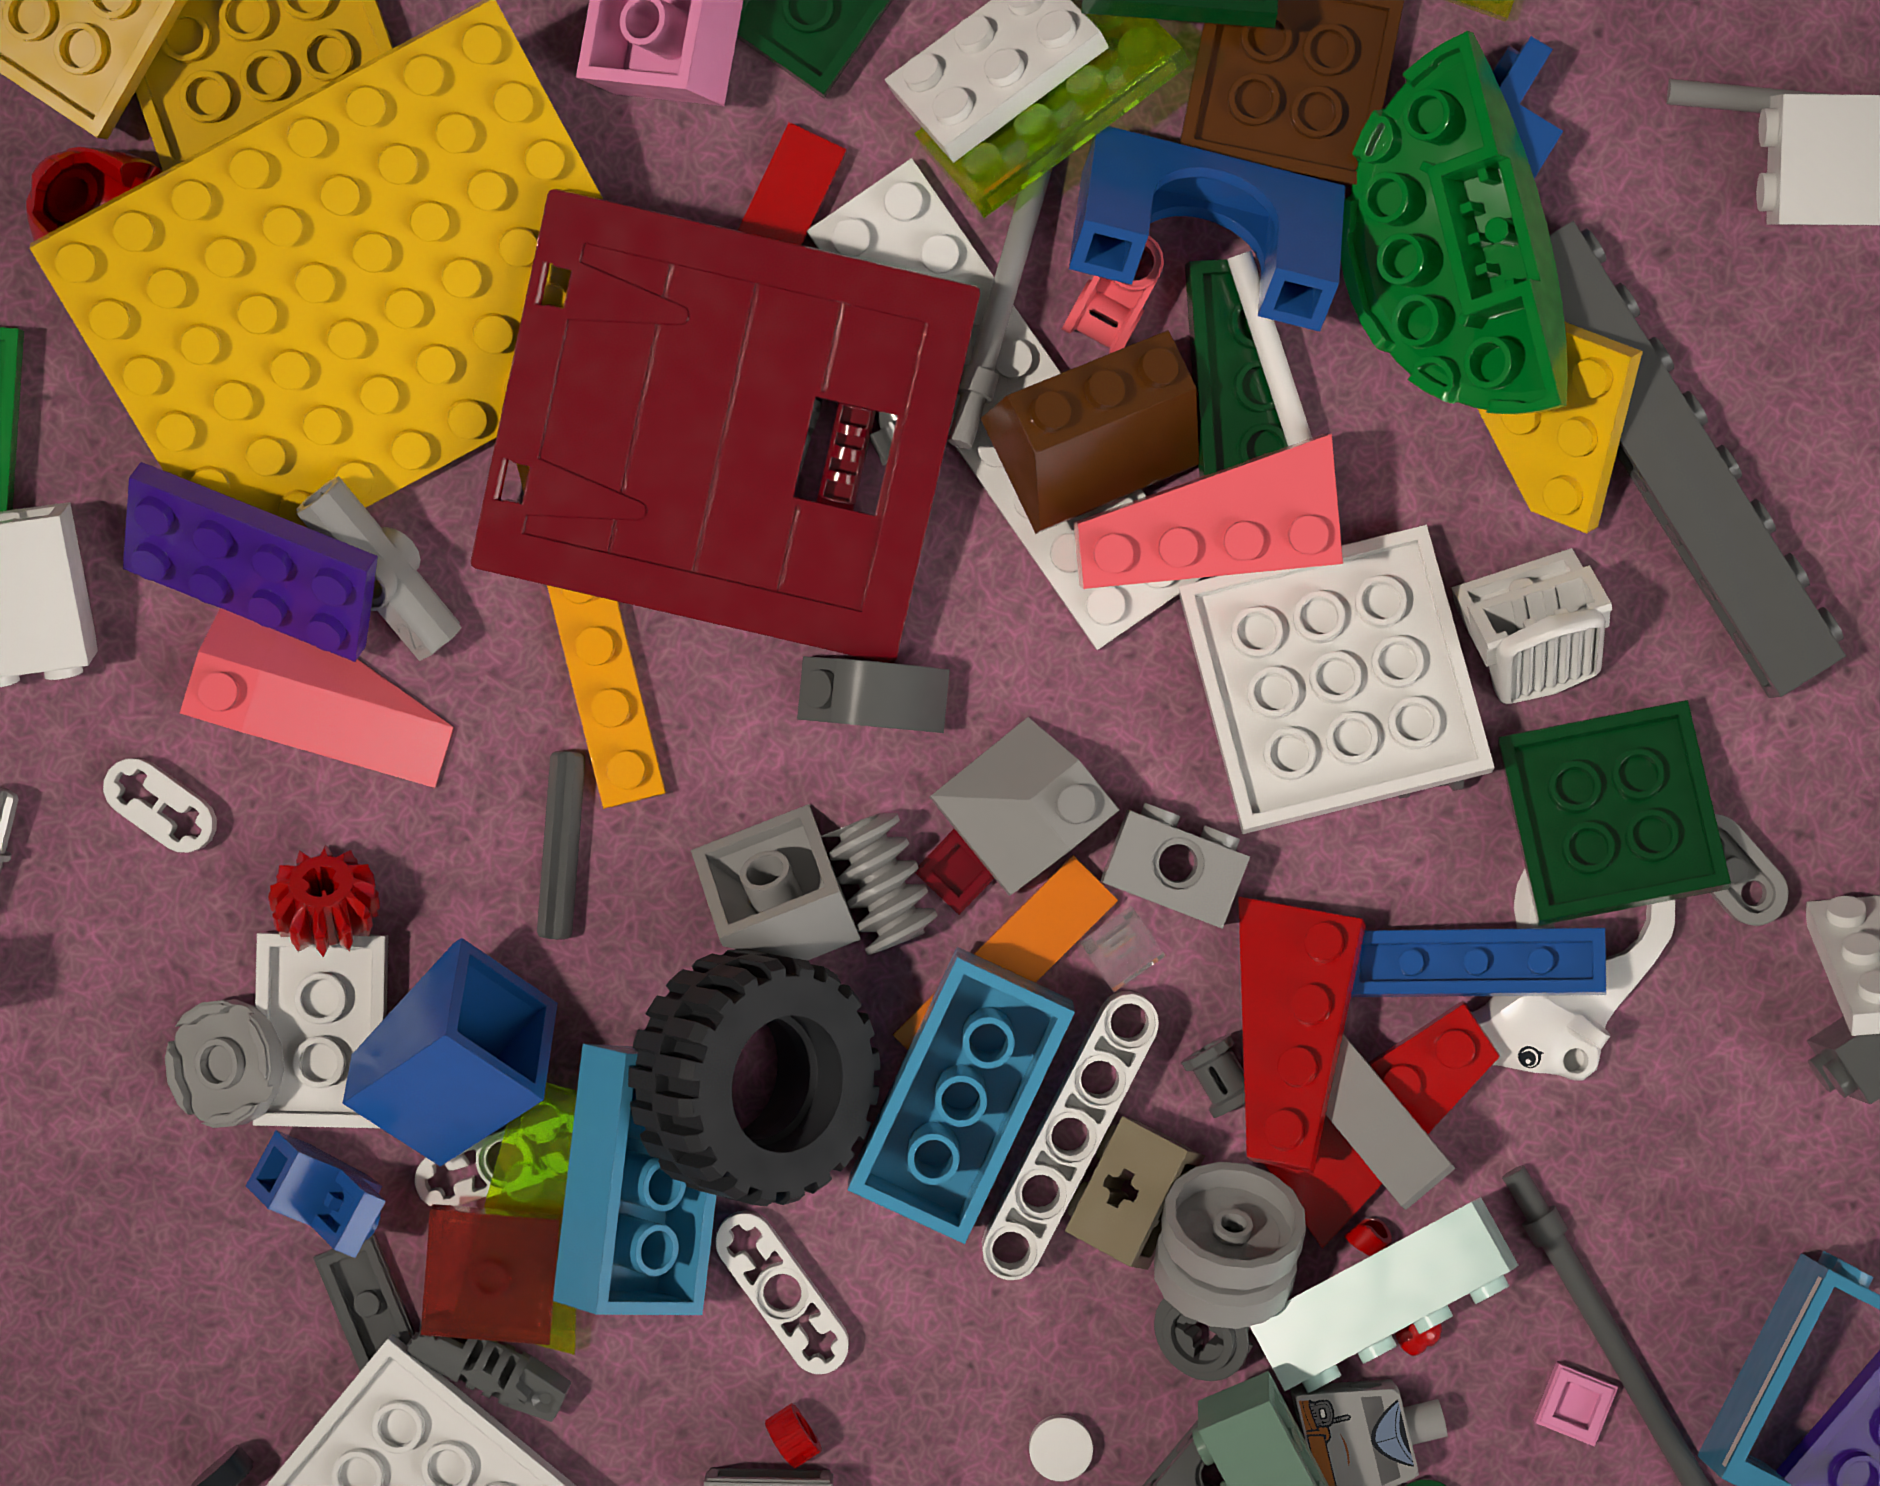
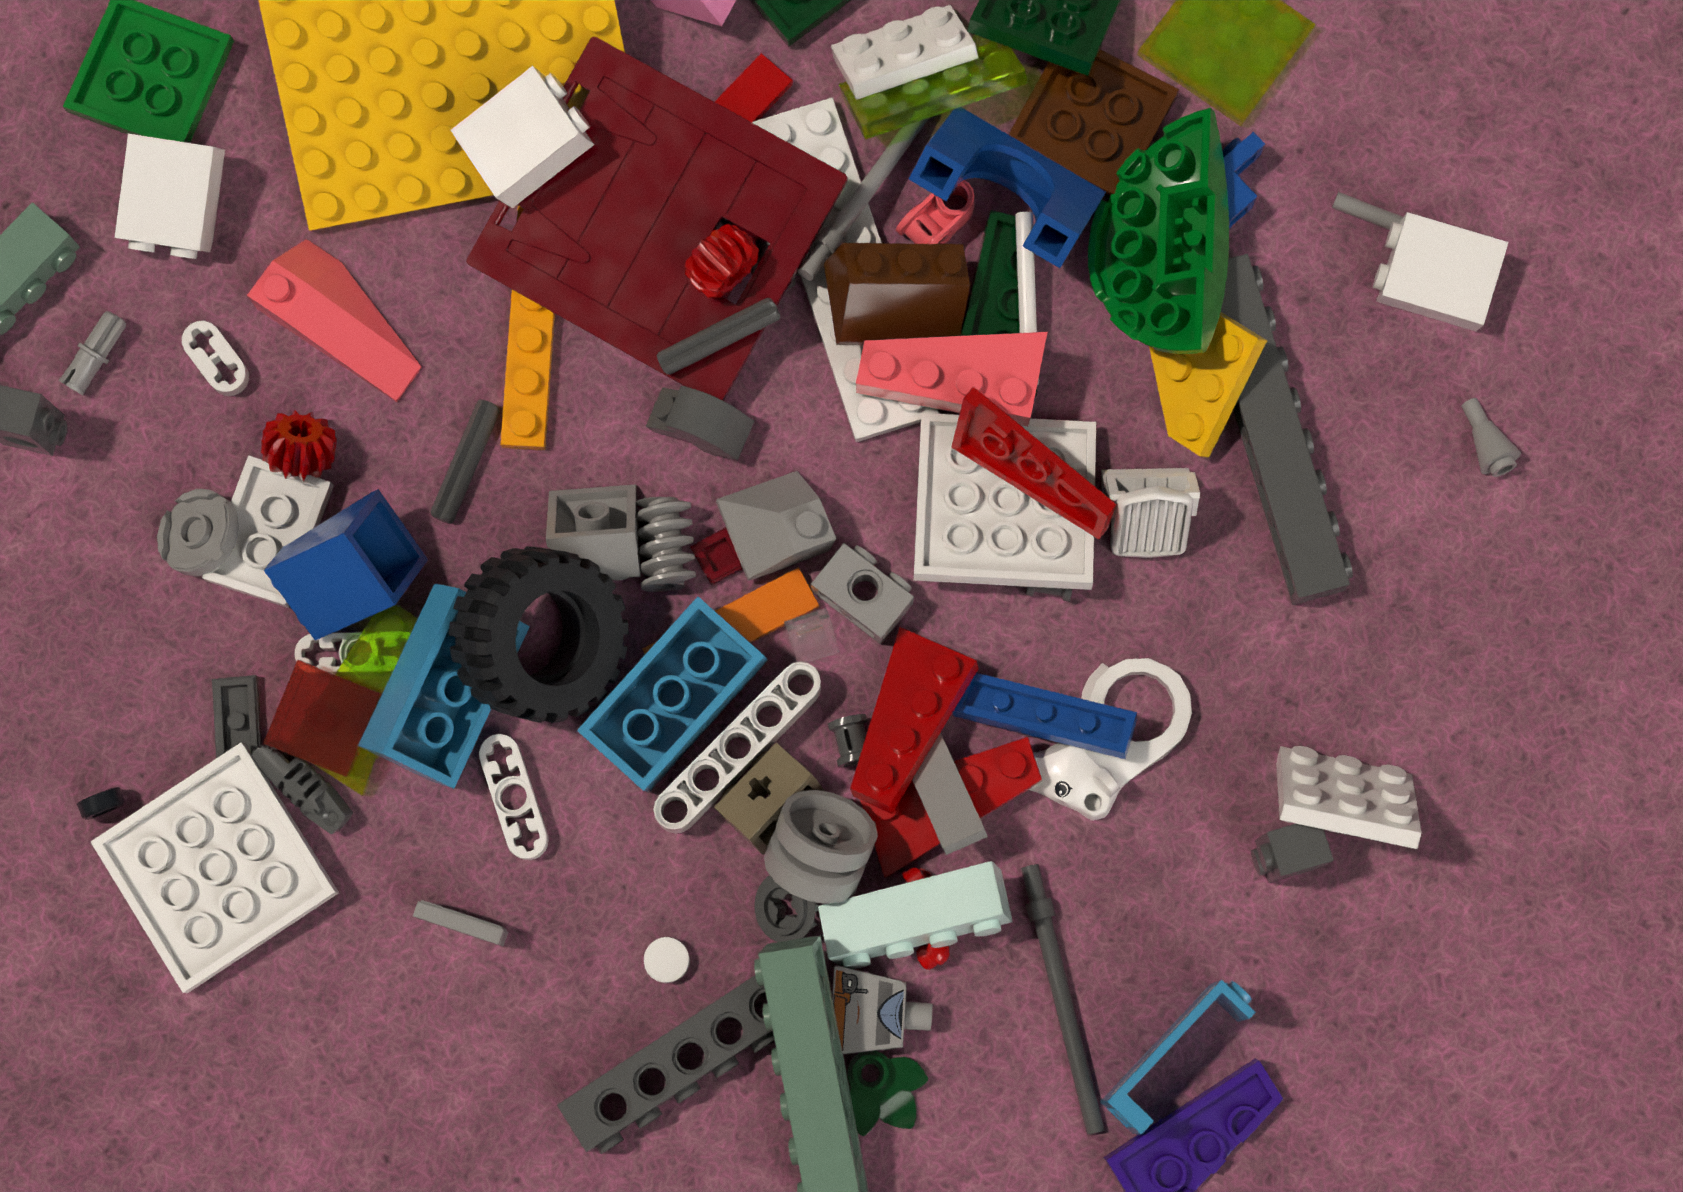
camera: 20 degrees right, 10 degrees down
(248, 561) = (324, 216): dark purple plate -> none
(318, 1191) = (228, 632): blue brick -> none
(399, 589) = (406, 246): light grey piece -> none
(499, 370) = (523, 136): none -> white brick
(793, 1436) = (489, 894): red axle -> none
(839, 467) = (721, 261): none -> red gear
(866, 572) = (718, 336): none -> dark grey axle
(1344, 625) = (1020, 459): none -> red wing
(1575, 1403) = (1026, 1038): bright pink tile -> none
(1613, 813) = (1165, 642): dark green plate -> none
(1747, 864) = (1238, 707): light grey plate -> none

